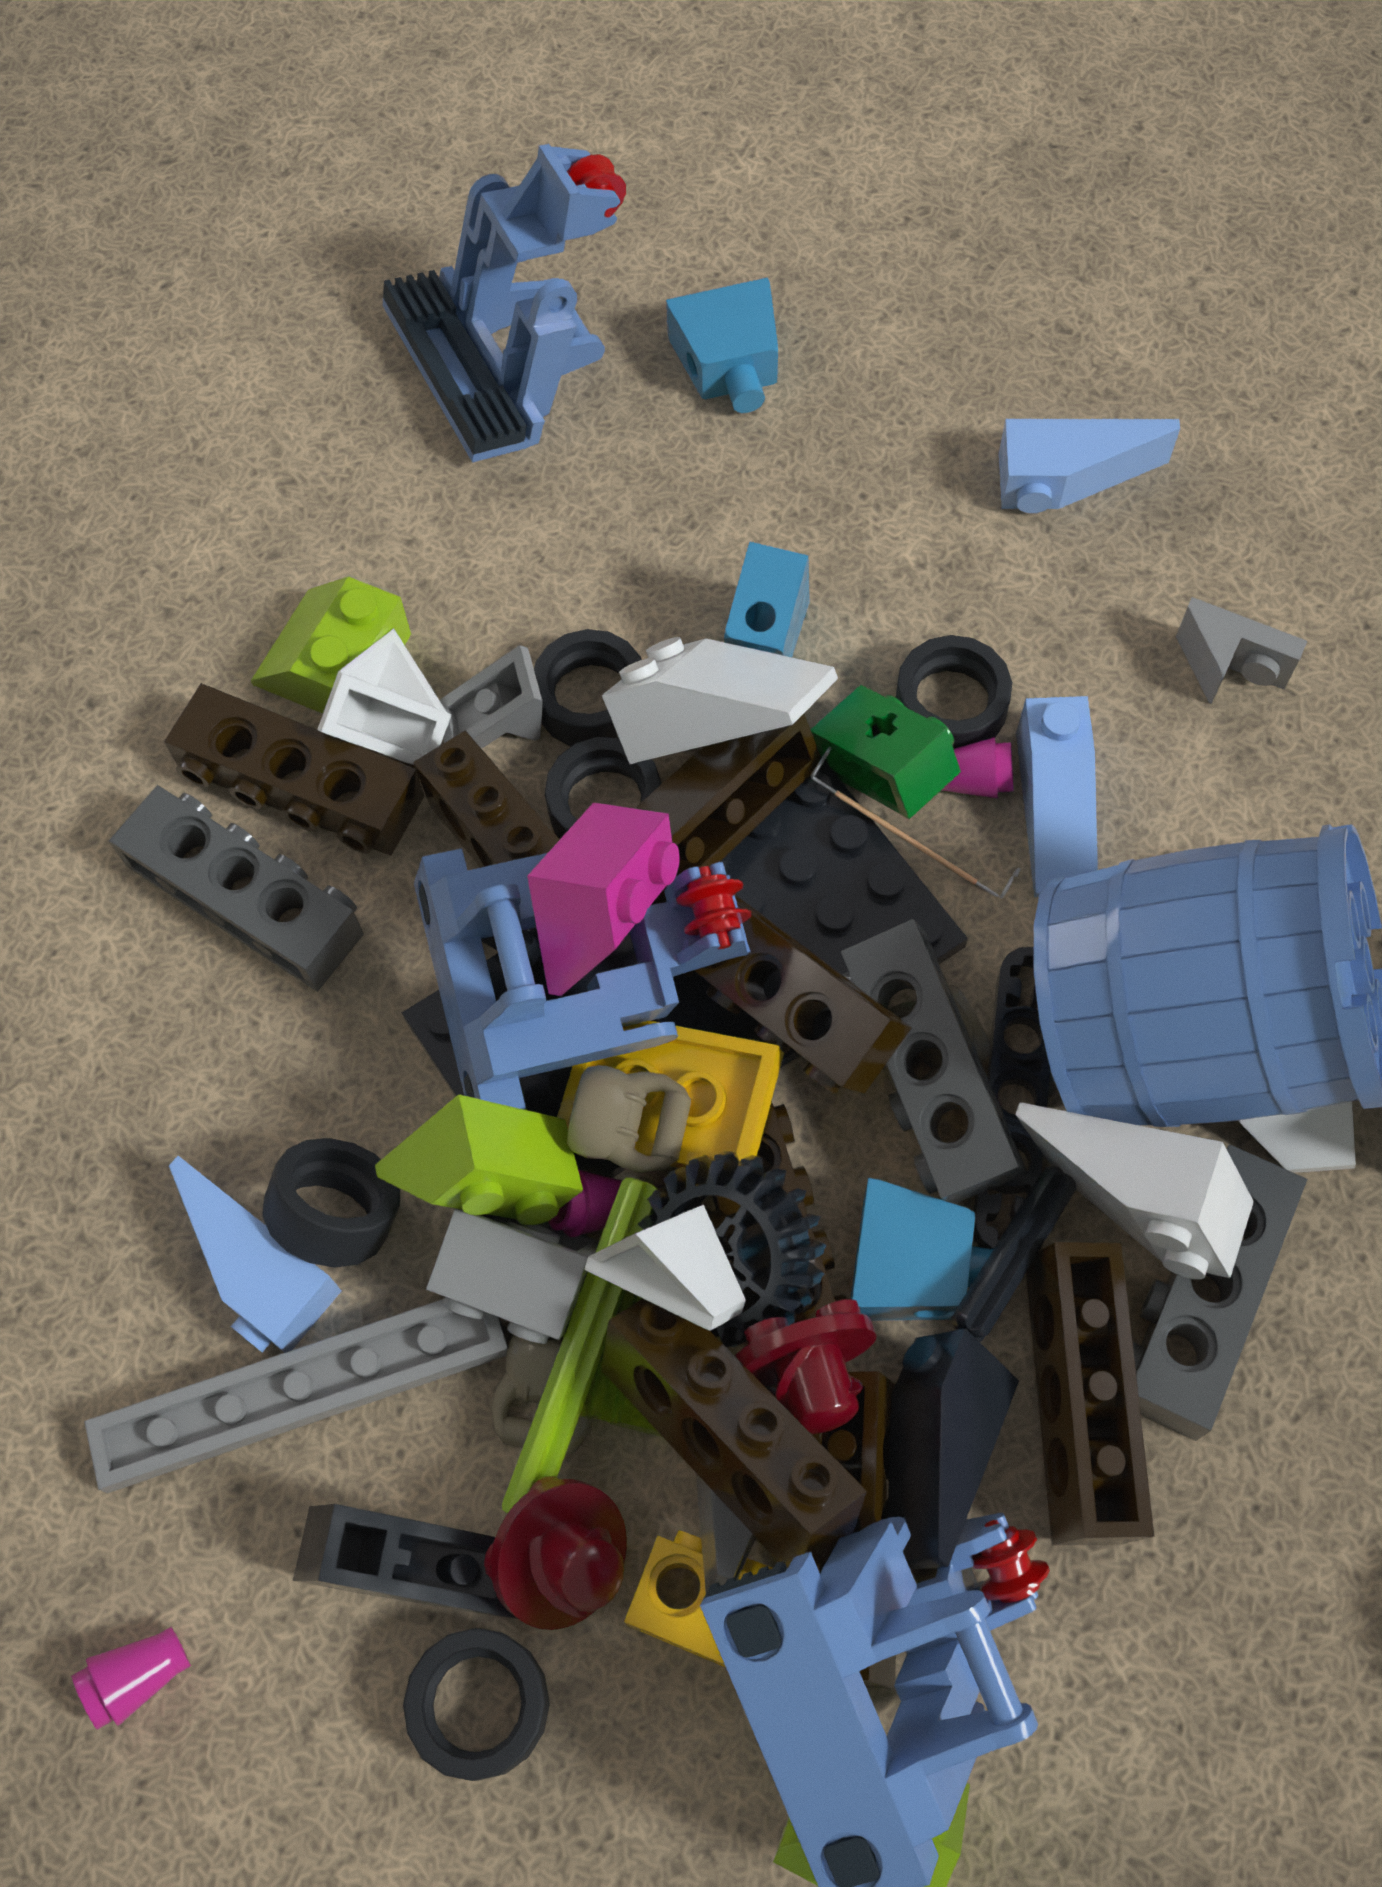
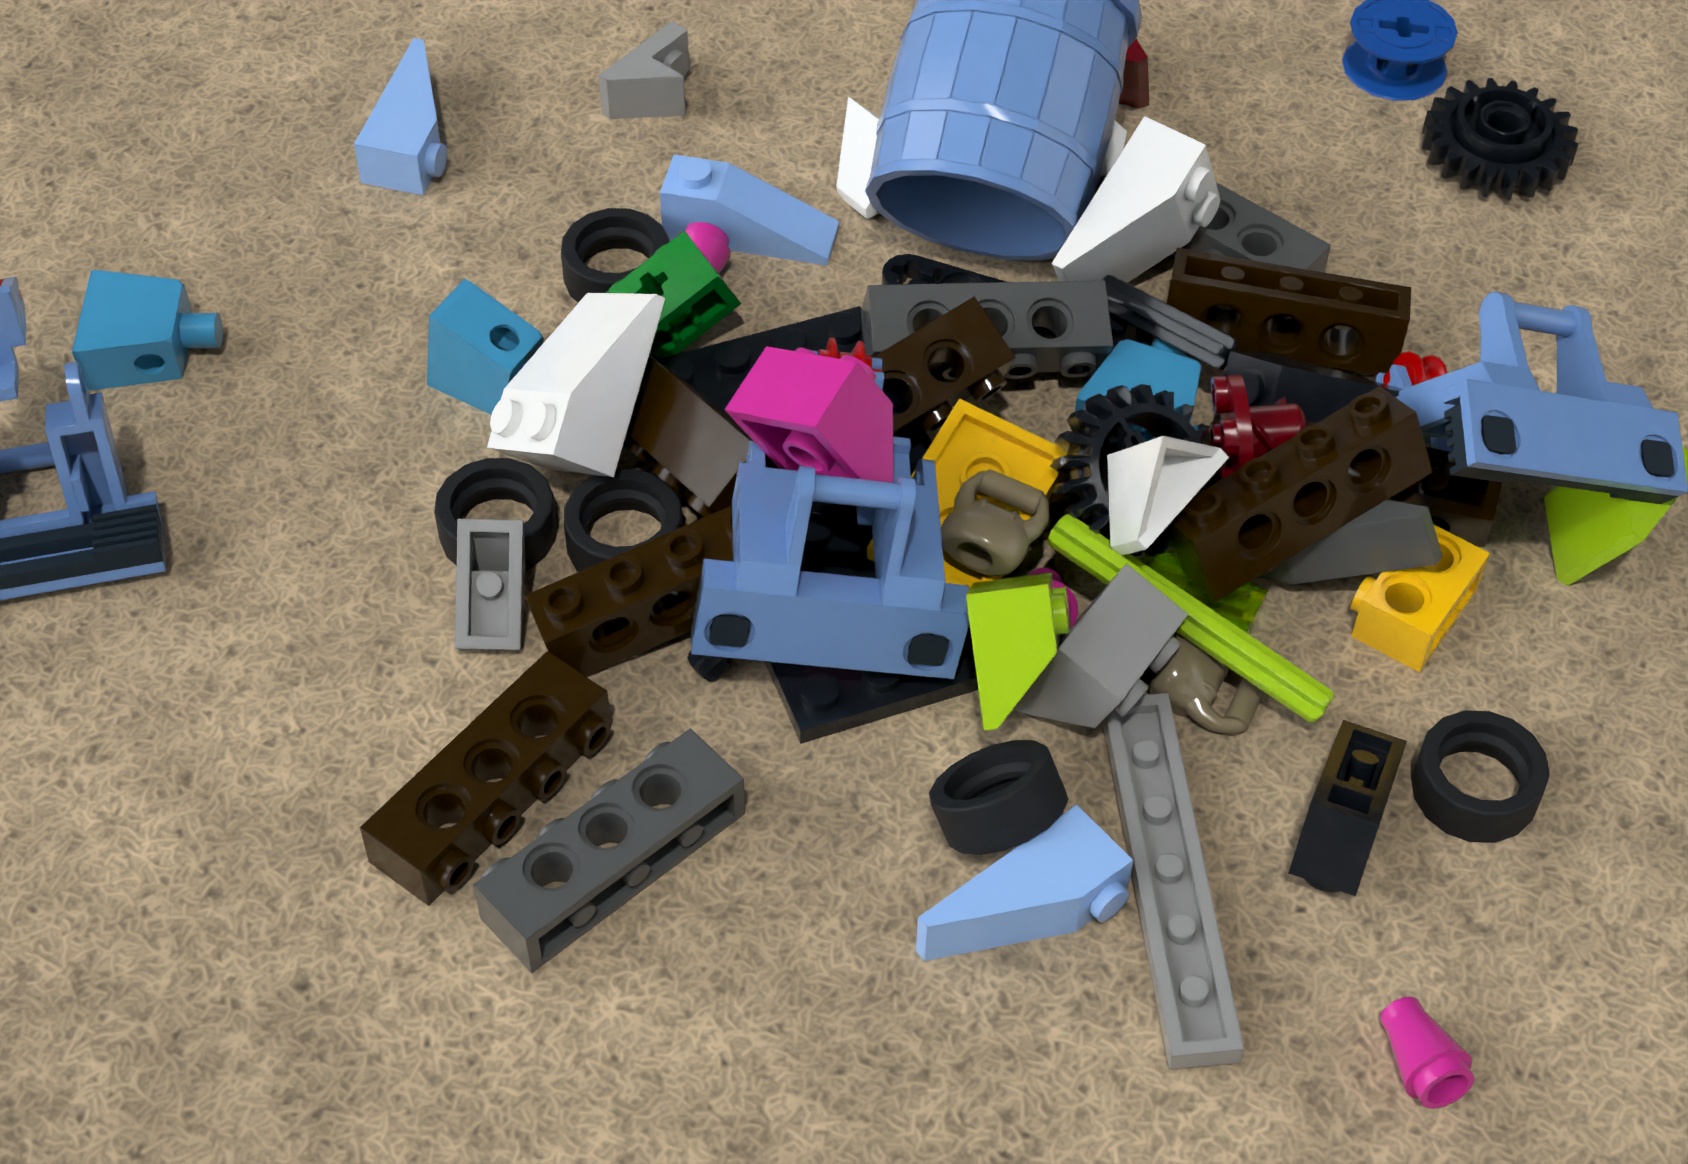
camera: 80 degrees left, 15 degrees down
(325, 635) = (348, 722): lime slope -> none
(385, 703) = (451, 676): white slope -> none
(558, 1554) = (1371, 669): dark red plate -> none
(910, 840) = (744, 325): light nougat piece -> none

